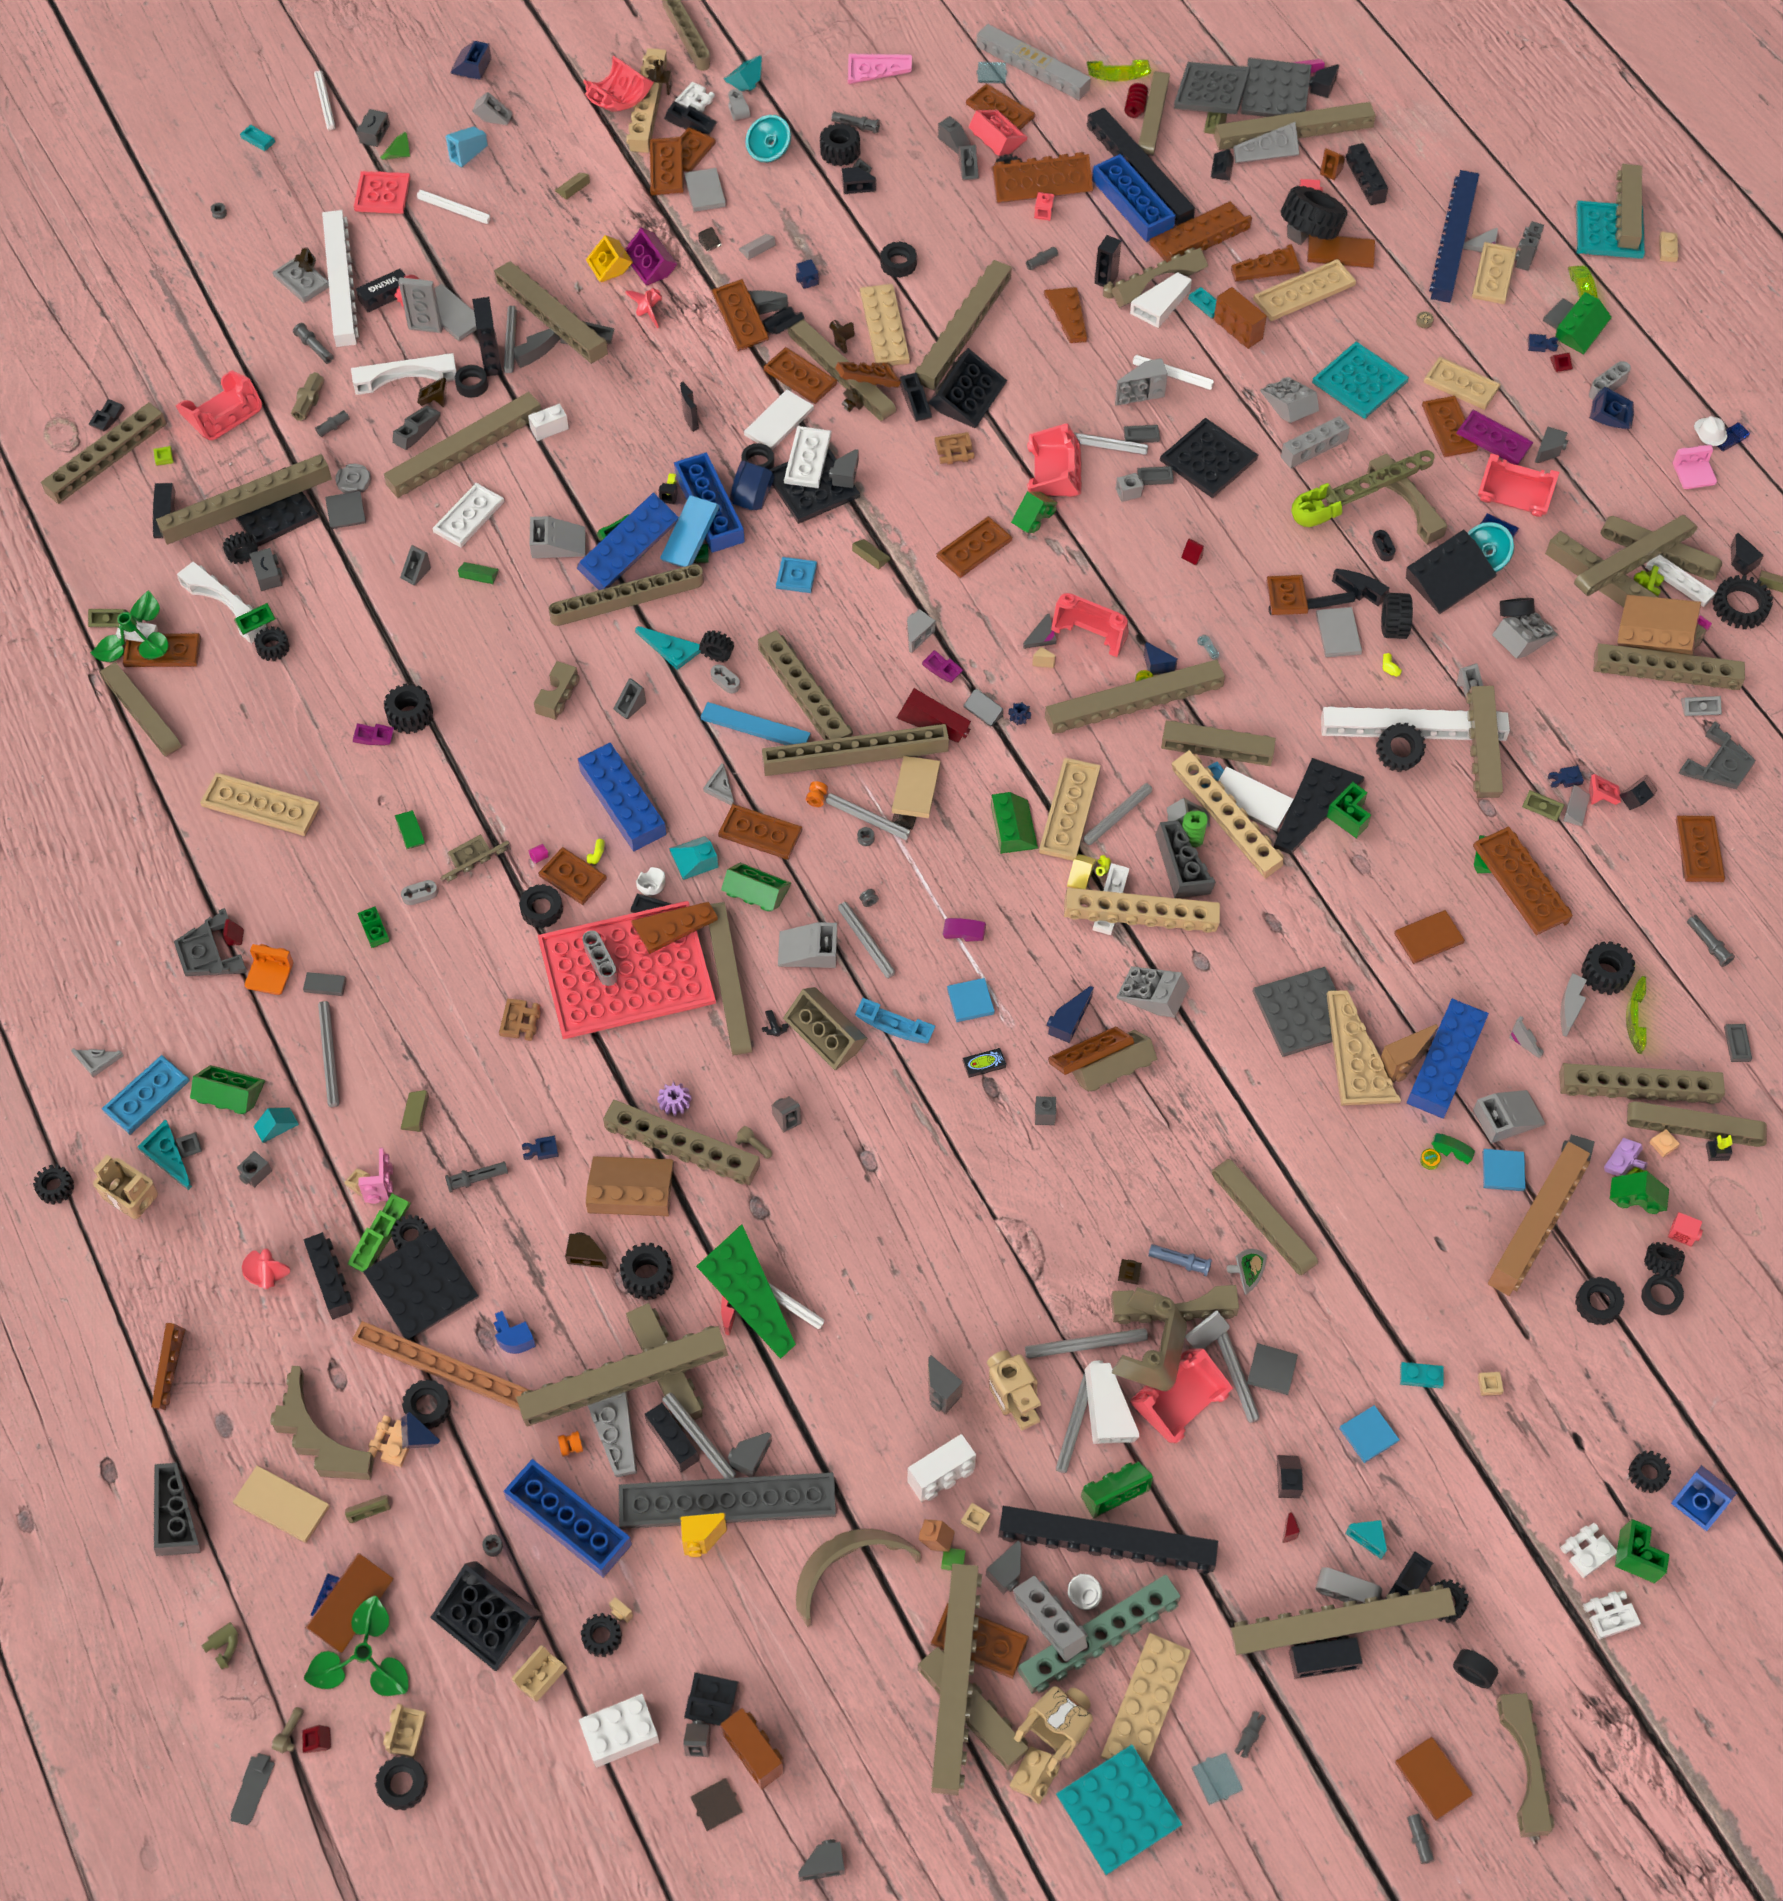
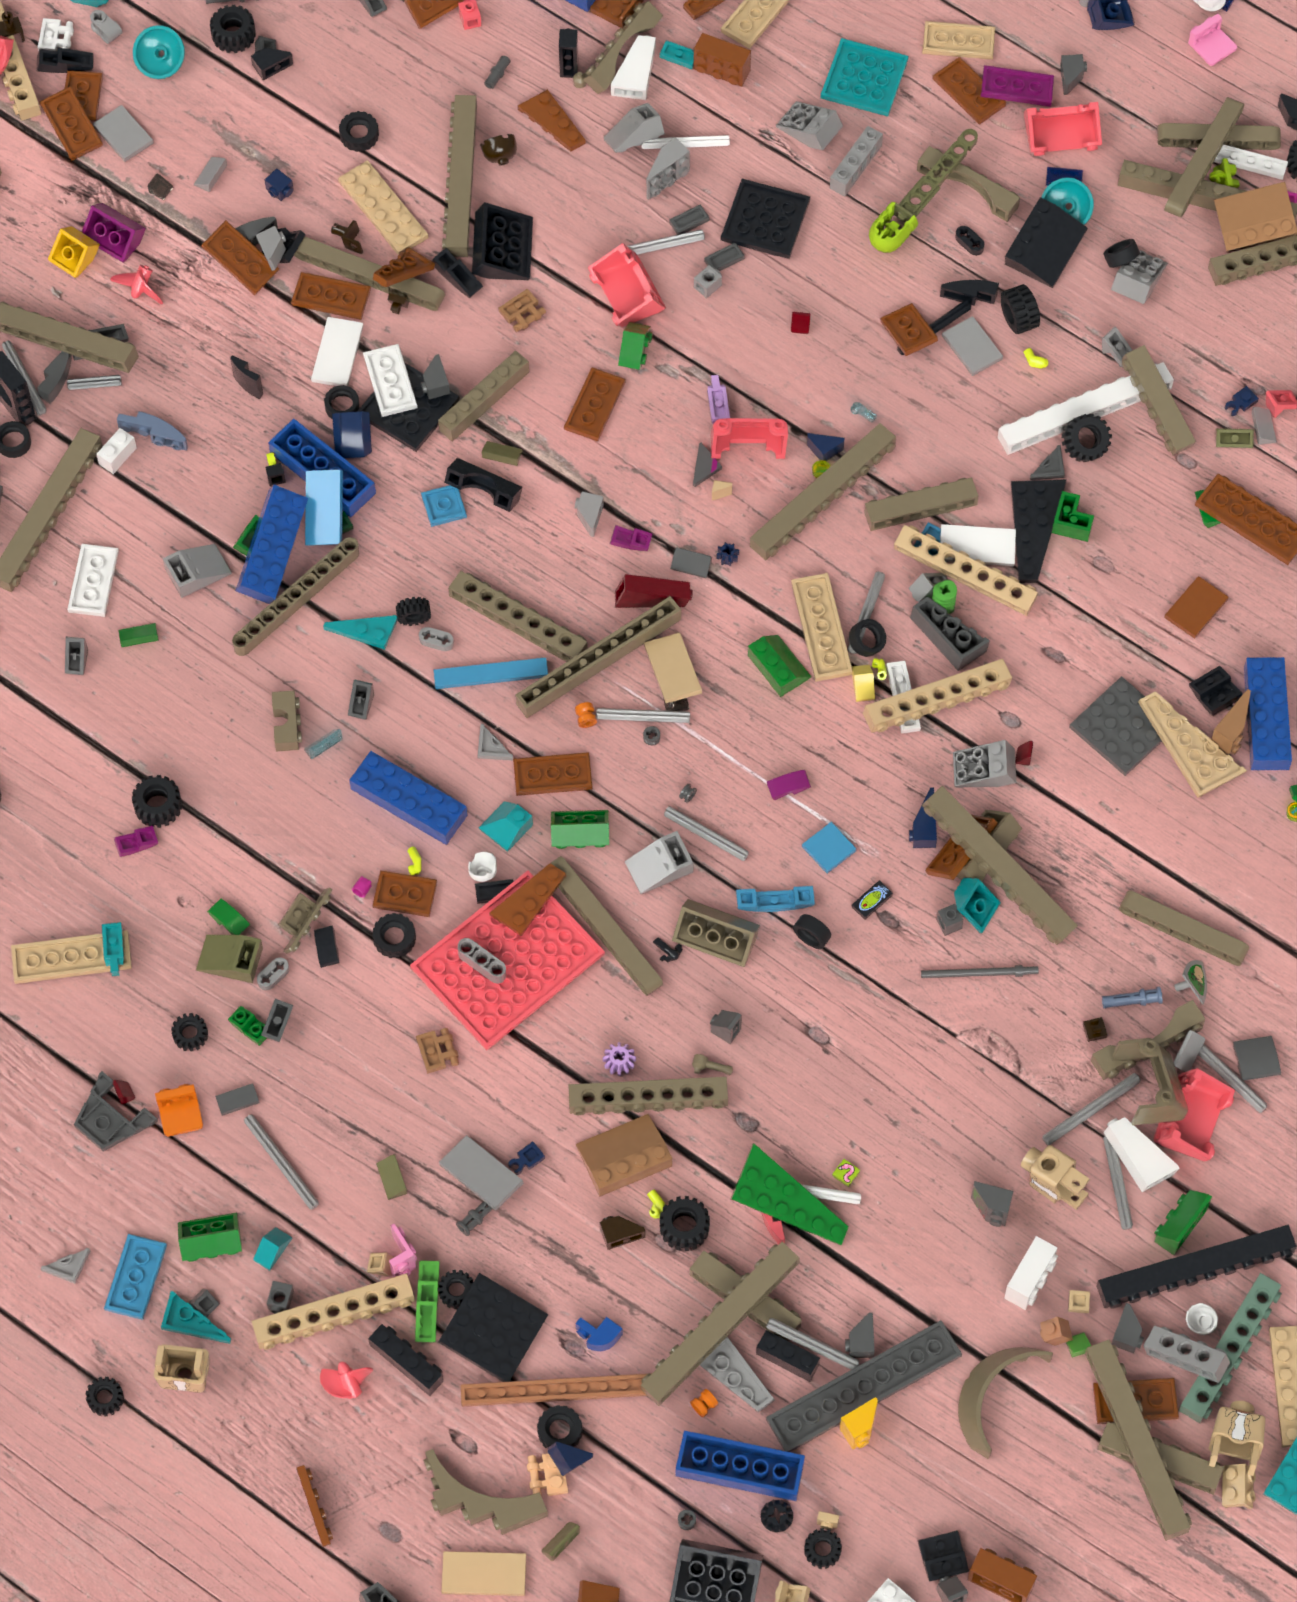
camera: 25 degrees left, 5 degrees up
(264, 1193) = (339, 1302): none -> tan brick
(296, 809) = (113, 946): none -> teal hinge
(321, 918) = (189, 1043): none -> black tyre
(392, 862) = (230, 956): none -> olive slope
(396, 931) = (277, 1020): none -> dark grey slope
(477, 889) = (326, 946): none -> black slope
(492, 1142) = (481, 1172): none -> light grey tile
(564, 364) = (94, 382): none -> axle
(578, 723) = (323, 743): none -> clear light blue slope
(581, 1591) = (770, 1522): none -> black gear
(592, 419) = (159, 430): none -> sand blue slope
(635, 1239) = (658, 1204): none -> neon yellow arm
(770, 314) = (272, 245): none -> light grey slope
(822, 1295) = (846, 1172): none -> lime tile
(826, 556) = (466, 475): none -> black arch
(881, 501) = (483, 396): none -> dark tan brick
(911, 1064) = (812, 931): none -> black tyre
(1008, 315) = (499, 149): none -> dark brown cylinder
(1077, 1107) = (975, 902): none -> teal slope
(1084, 582) = (717, 400): none -> lavender hinge
(1084, 1185) = (1017, 970): none -> dark grey bar
(1114, 1081) = (999, 865): none -> dark tan brick
(1116, 827) = (856, 643): none -> black tyre
(1137, 341) = (635, 128): none -> light grey slope
(1197, 996) = (1024, 753): none -> dark red slope
(1355, 761) = (1051, 467): none -> dark grey tile
(1407, 1016) = (1215, 690): none -> black slope

